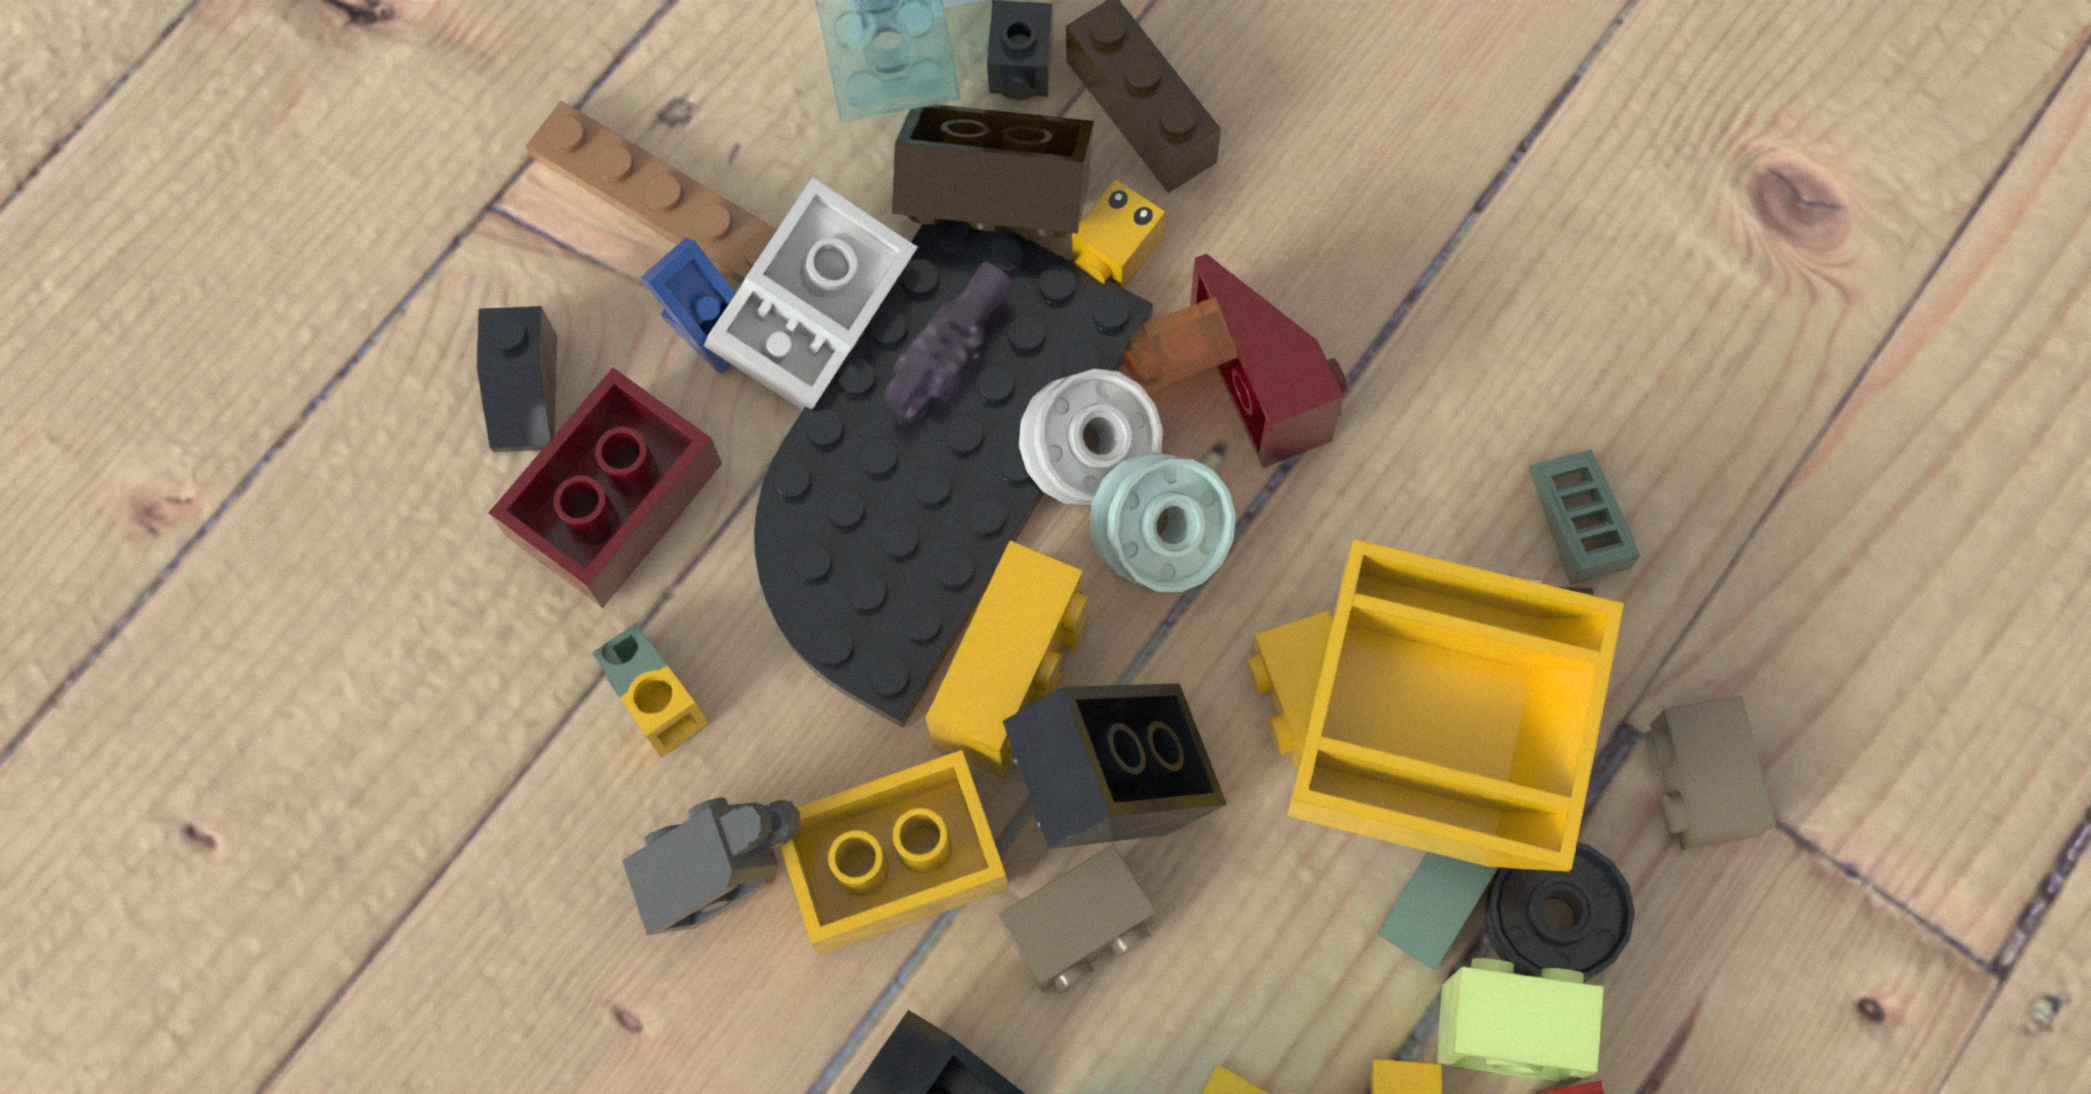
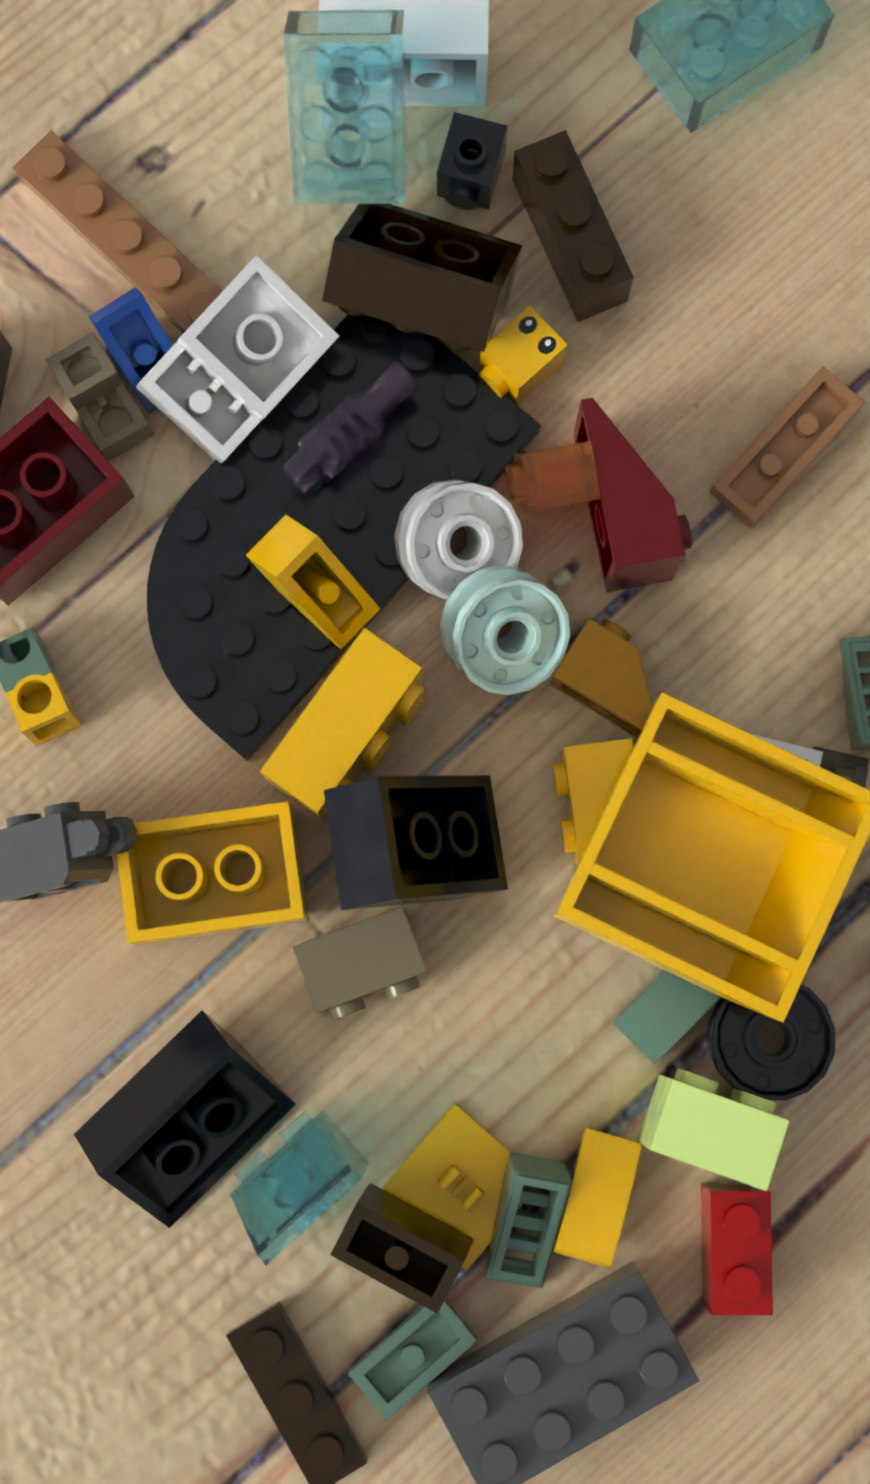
camera: 10 degrees right, 10 degrees up
(663, 363) = (99, 396): none -> dark tan slope
(940, 508) = (313, 580): none -> yellow slope
(1284, 554) = (606, 676): none -> pearl gold slope
(1424, 277) = (787, 447): none -> medium nougat plate

